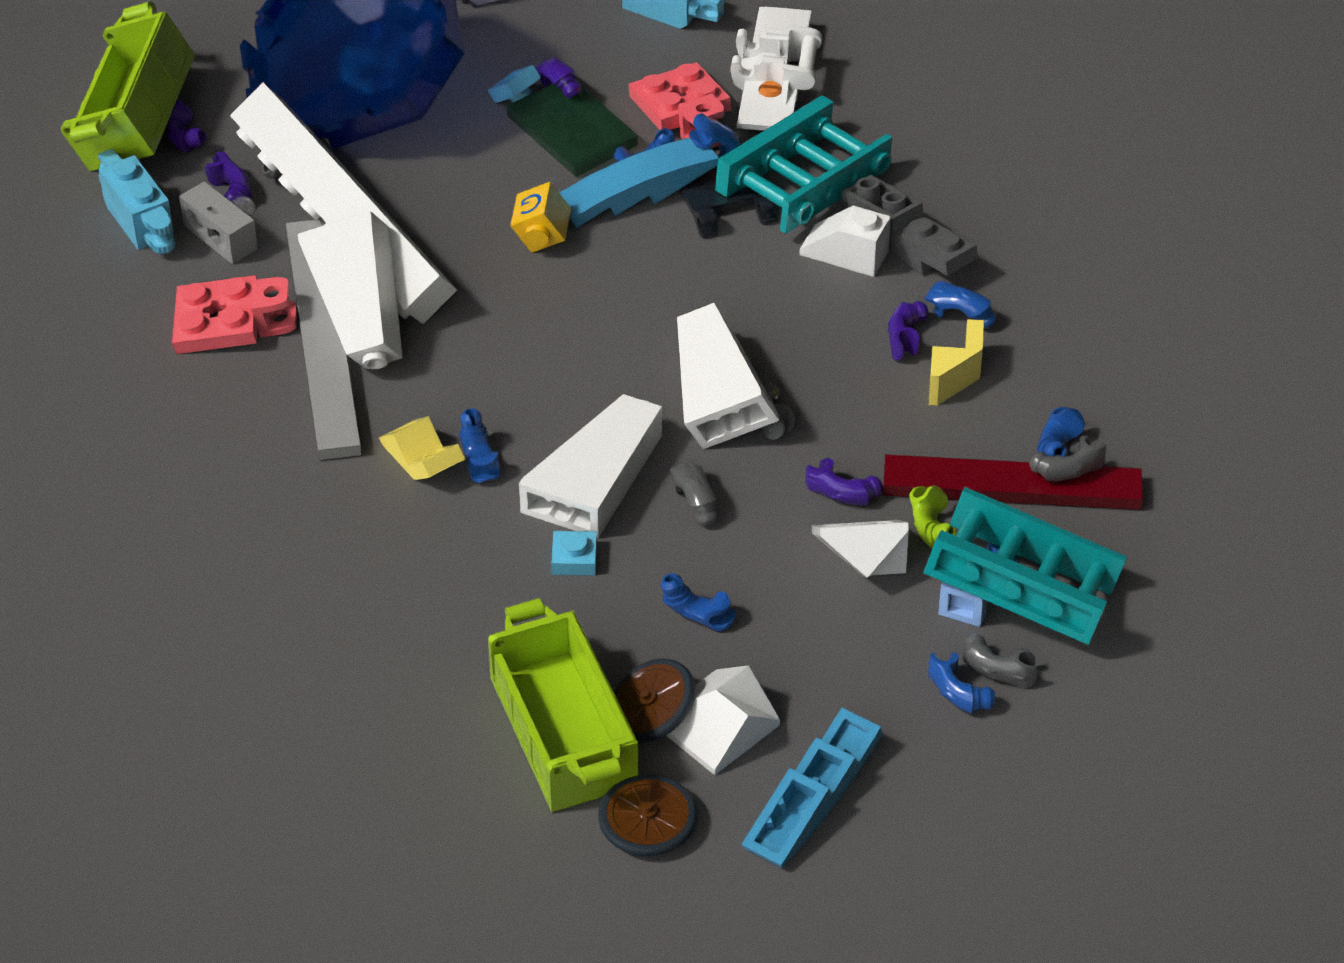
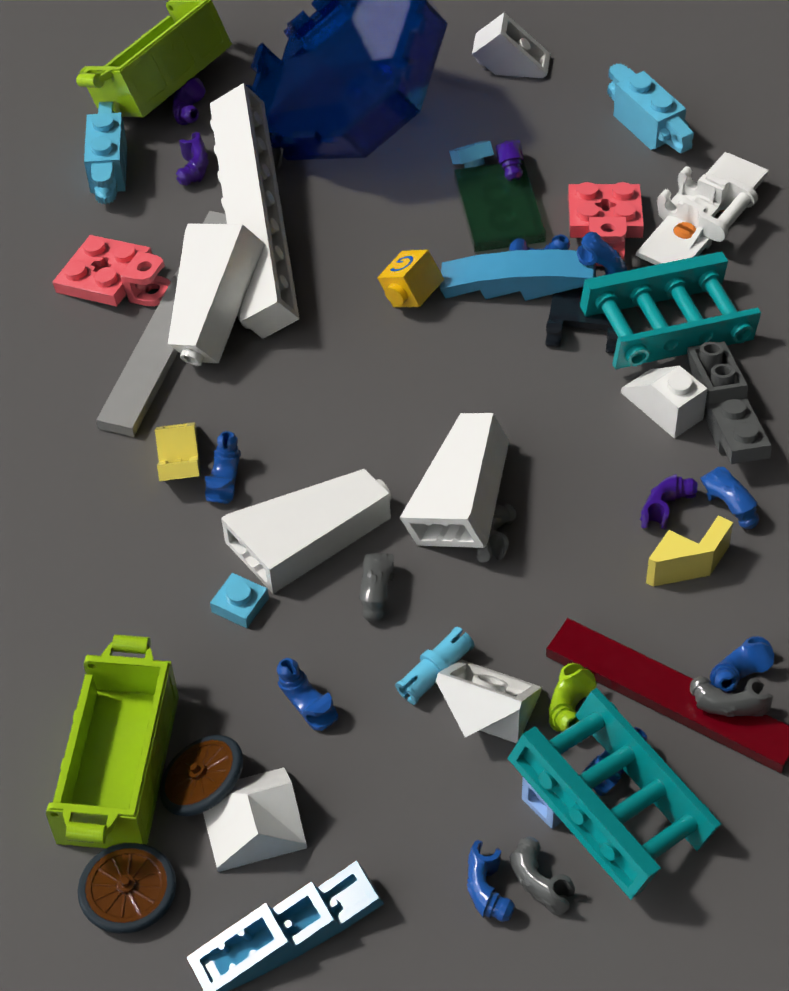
camera: 30 degrees right, 5 degrees up
(220, 223) = (160, 191): light grey piece -> none
(795, 536) = (431, 662): none -> medium azure pin
(851, 492) = (513, 641): dark purple piece -> none

